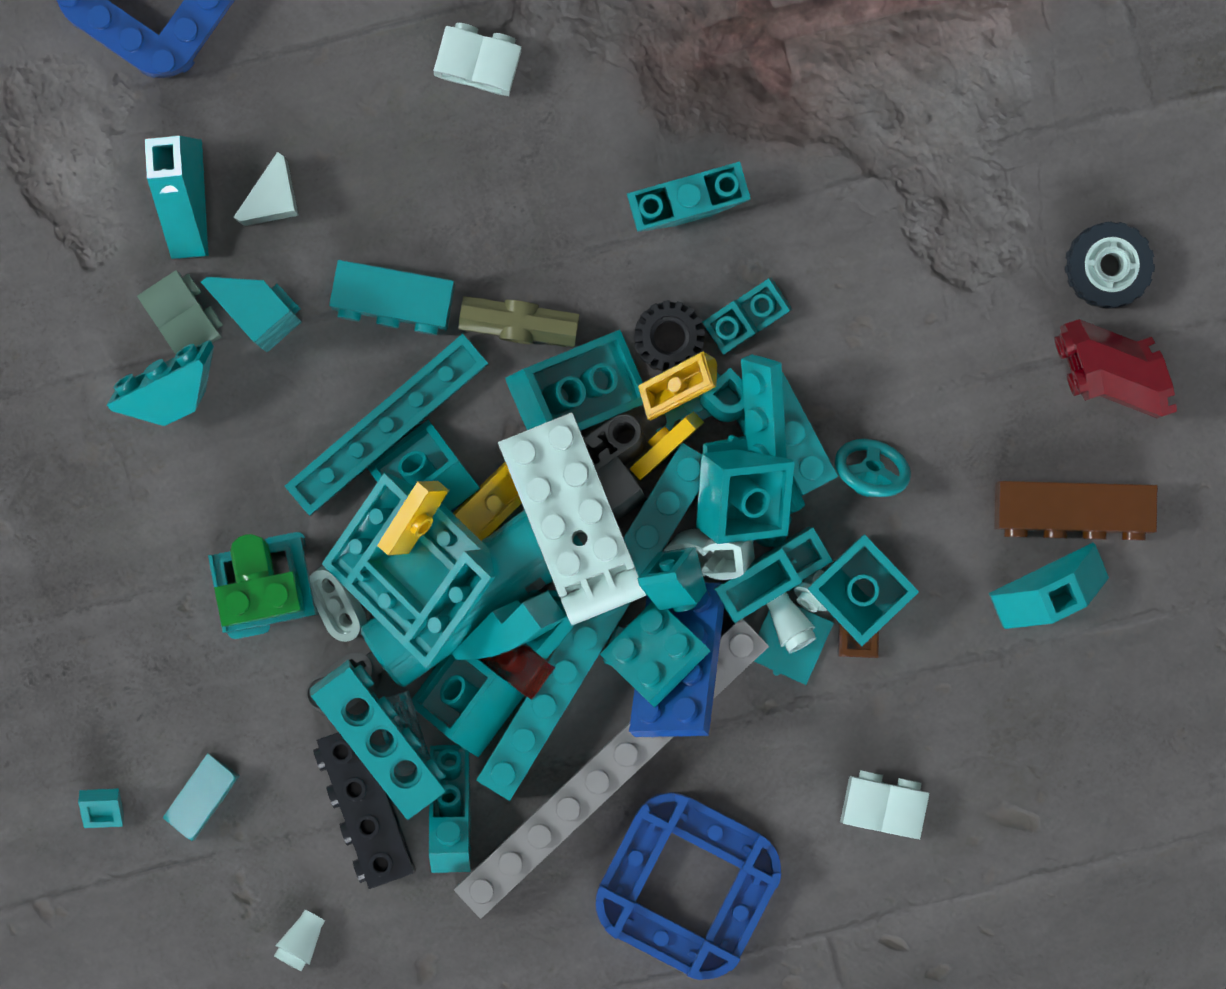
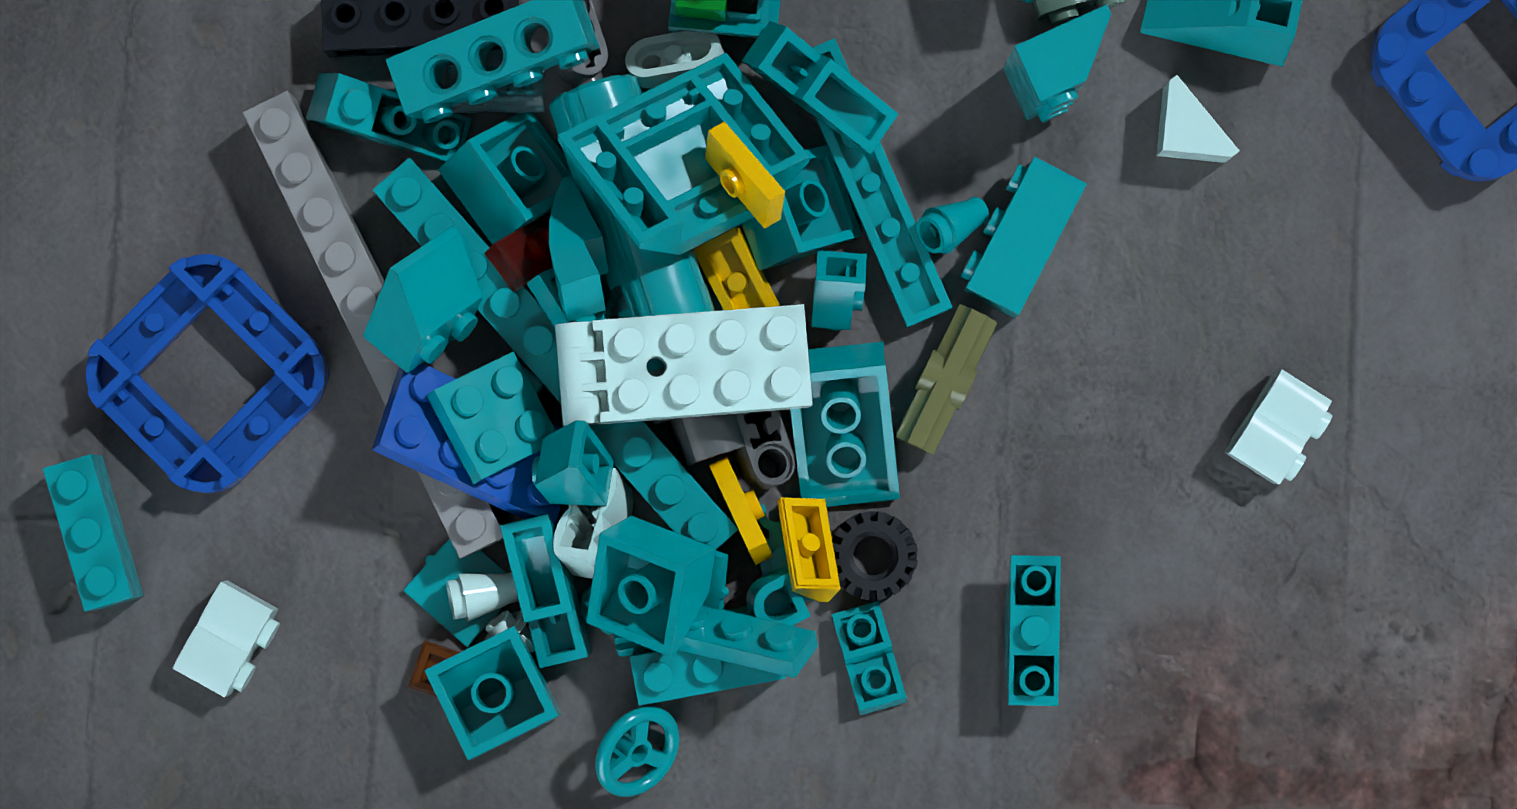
camera: 100 degrees right, 0 degrees up
(325, 484) = (820, 86): none -> teal slope
(401, 355) = (950, 224): none -> teal cone
(475, 424) = (838, 289): none -> teal brick
(585, 729) = (426, 303): none -> teal slope
(836, 933) = (93, 532): none -> teal brick

